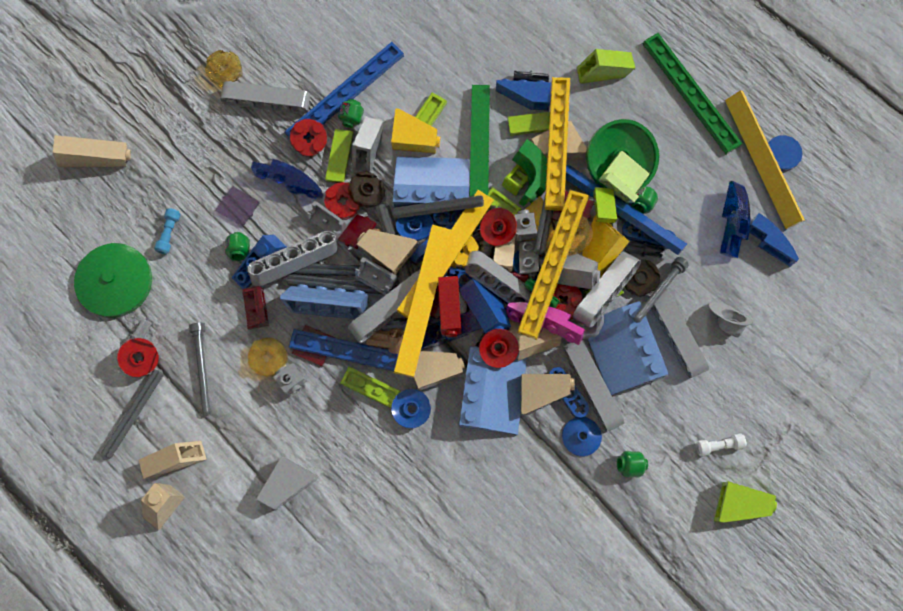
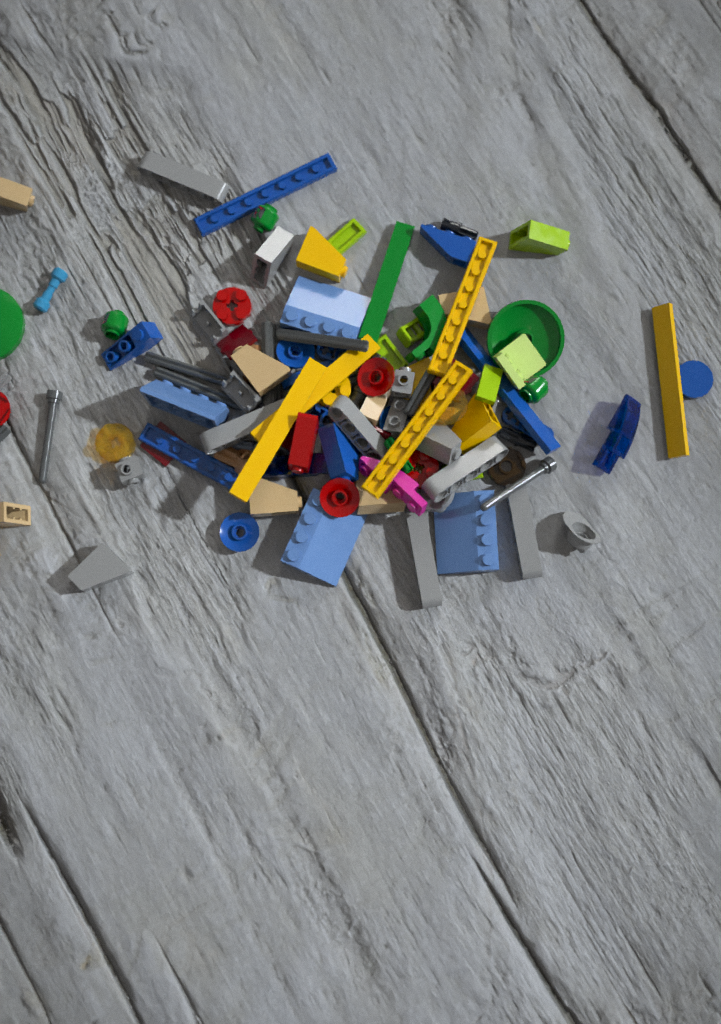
camera: 15 degrees right, 5 degrees up
(214, 65) = (147, 124): clear yellow plate -> none
(237, 206) = (126, 283): clear purple piece -> none
(255, 307) = (116, 390): dark red hinge -> none
(292, 258) = (178, 351): light grey beam -> none
(293, 178) = (188, 271): clear blue slope -> none
(301, 129) = (221, 241): red plate -> none
(339, 156) = (241, 259): lime tile -> none
(361, 197) = (253, 311): dark brown tile -> none
(369, 387) = (205, 499): lime tile -> none
(529, 123) = (441, 277): lime tile -> none
(544, 389) = (372, 550): tan slope -> none
(574, 443) = (397, 616): blue dish -> none
(580, 402) = (388, 547): blue beam -> none
(632, 464) = (437, 646): green head -> none
(692, 93) = (620, 291): green tile -> none
(737, 442) = (513, 650): white piece -> none
(743, 503) = (533, 713): lime slope -> none
(773, 240) = (650, 465): blue slope -> none

